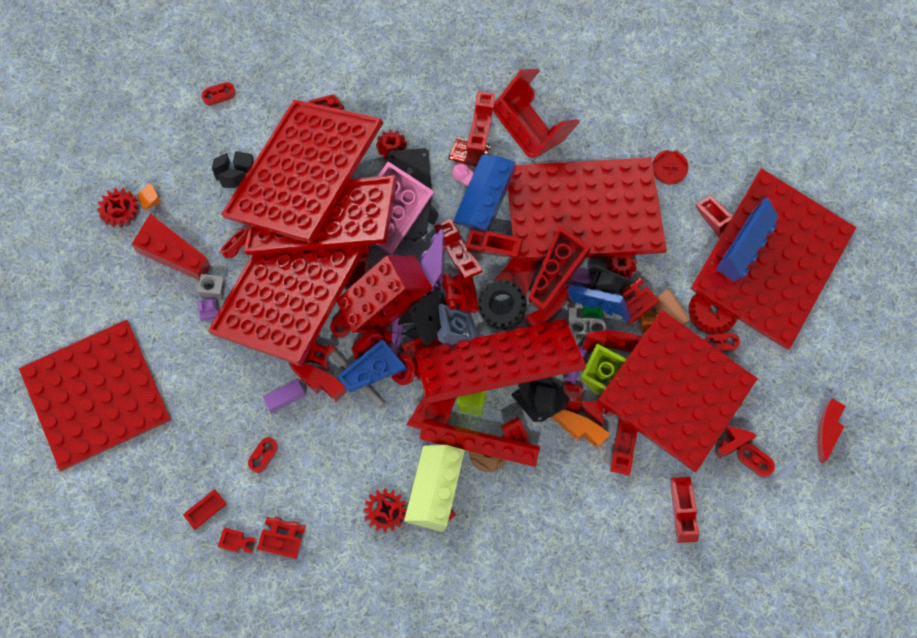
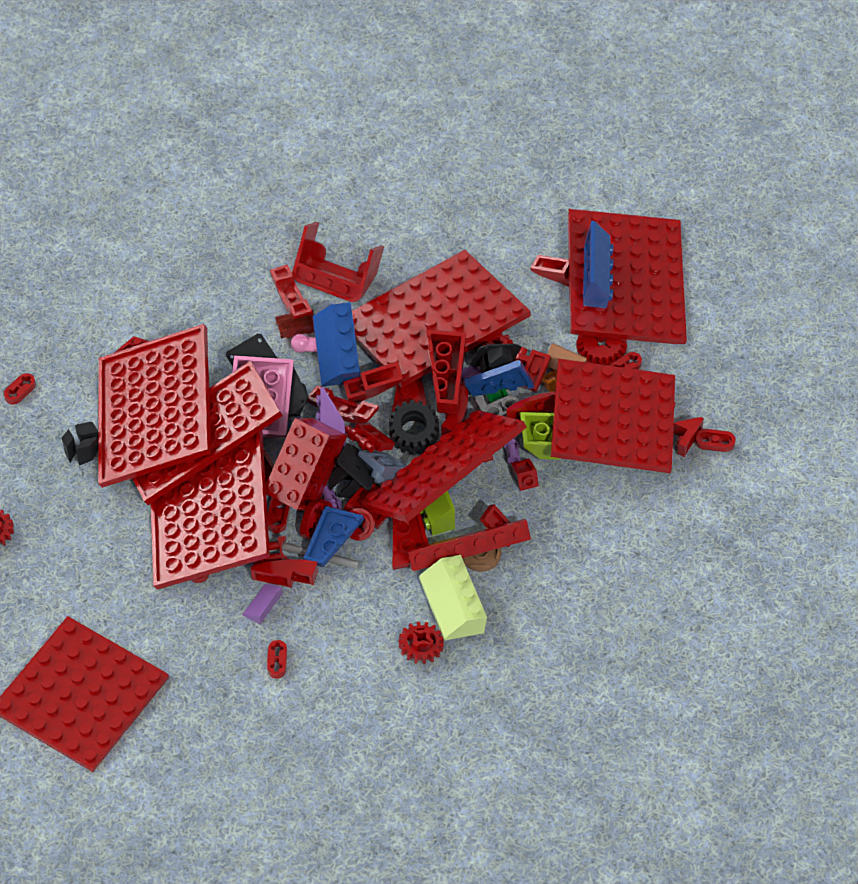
camera: 30 degrees left, 15 degrees down
(148, 197) = (14, 505): orange slope -> none
(168, 248) = (70, 536): red wedge -> none
(204, 509) = (254, 729): red tile -> none
(207, 309) = (139, 570): medium lavender tile -> none
(216, 292) = (134, 542): light grey brick -> none
(231, 247) = (128, 502): red plate -> none
(233, 540) = (299, 739): red plate -> none
(281, 544) = (342, 719): red plate -> none
(390, 142) = (217, 351): red gear -> none
(540, 398) = (494, 471): black piece -> none
(581, 427) = (547, 490): orange slope -> none
(594, 411) = (554, 470): red slope -> none
(623, 449) = (595, 485): red slope -> none
(670, 167) = (487, 249): red tile -> none
(684, 510) = (681, 508): red slope -> none
(829, 429) = (760, 384): red slope -> none

